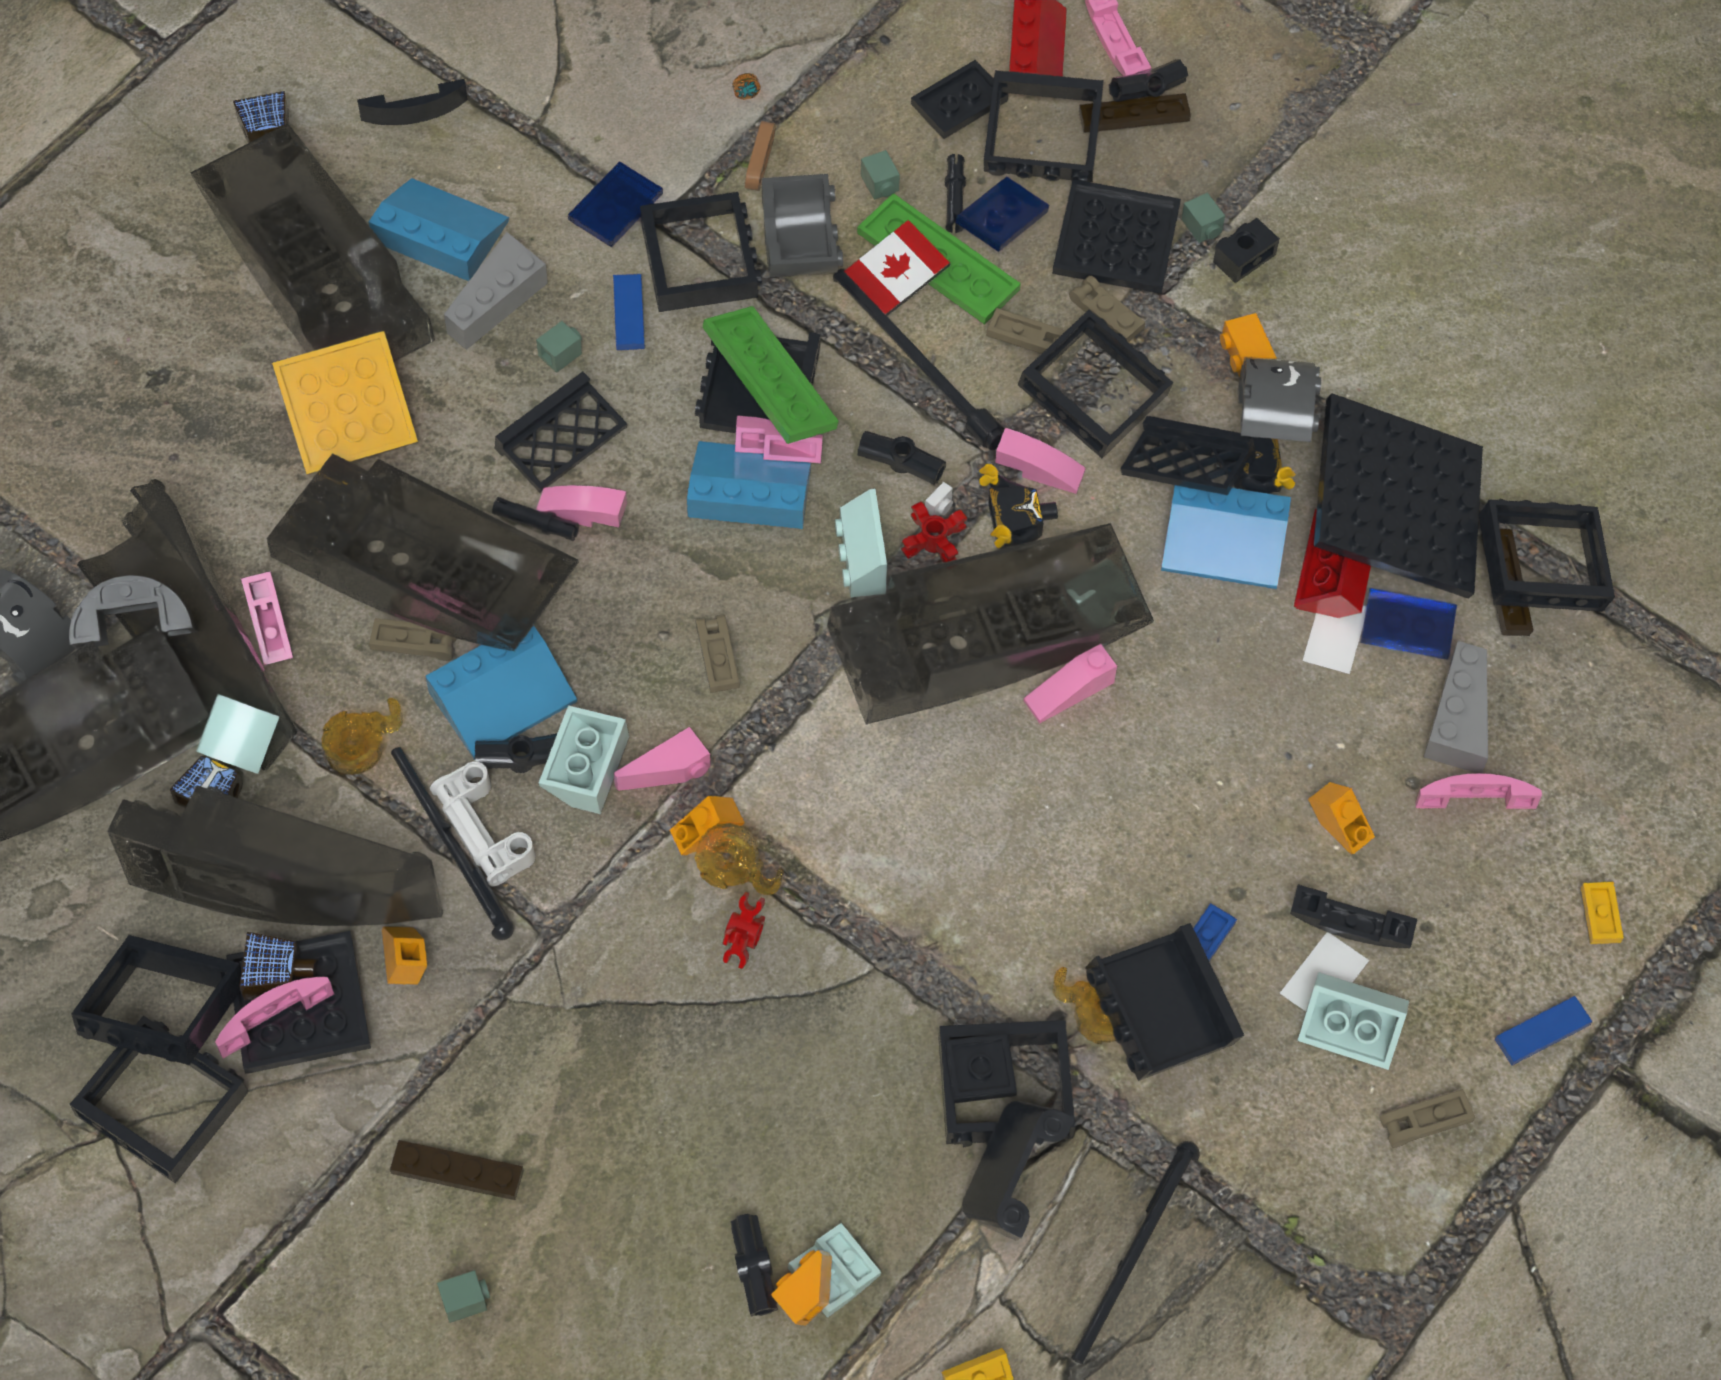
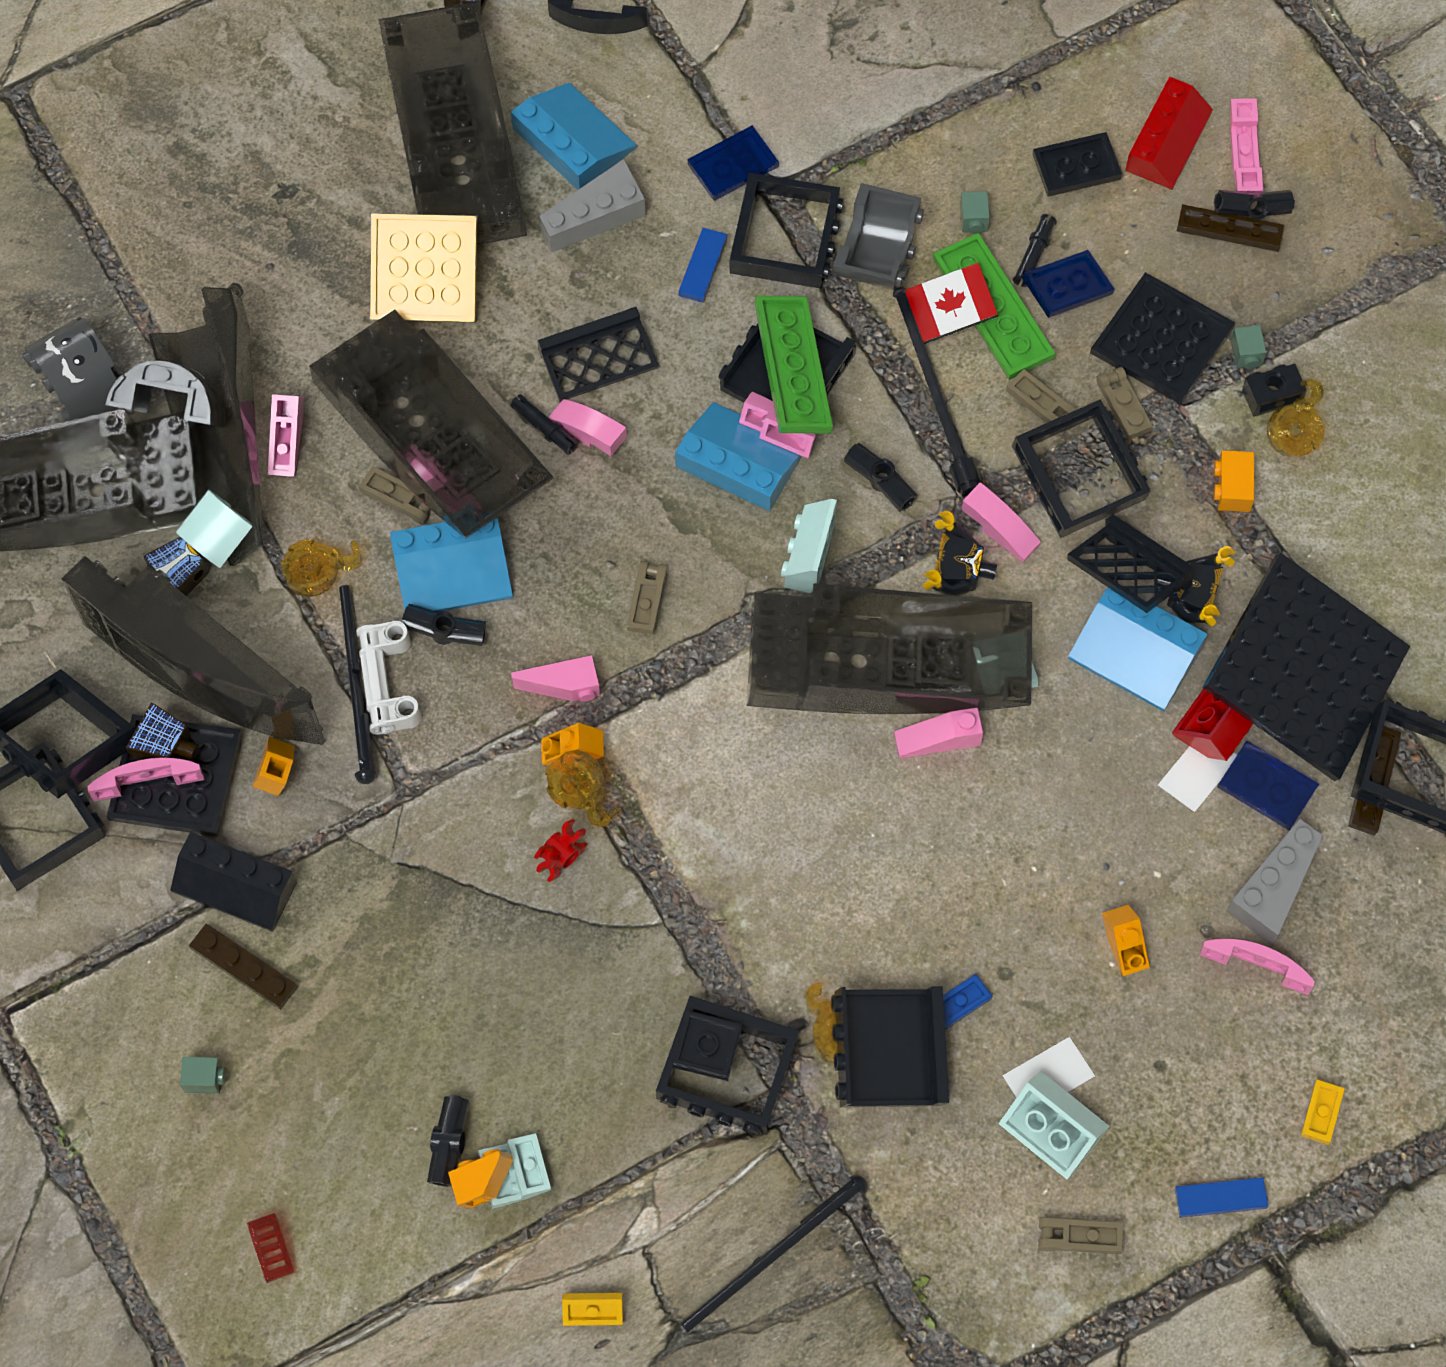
camera: 25 degrees right, 5 degrees up
(408, 1087) = (232, 881): none -> black slope
(559, 346) = (629, 276): sand green brick -> none
(585, 758) = (492, 651): light aqua slope -> none
(746, 86) = (892, 91): clear orange tile -> none
(760, 155) = (877, 158): medium nougat beam -> none
(933, 524) = (878, 546): red pin -> none
(940, 500) = (895, 529): white plate -> none
(990, 1191) = (716, 1108): black windscreen -> none
(1051, 87) = (1155, 178): black window -> none
(1278, 398) = (1231, 540): dark grey cylinder -> none
(1285, 263) = (1308, 421): none -> clear yellow piece
(1352, 922) = (1092, 1035): black slope -> none

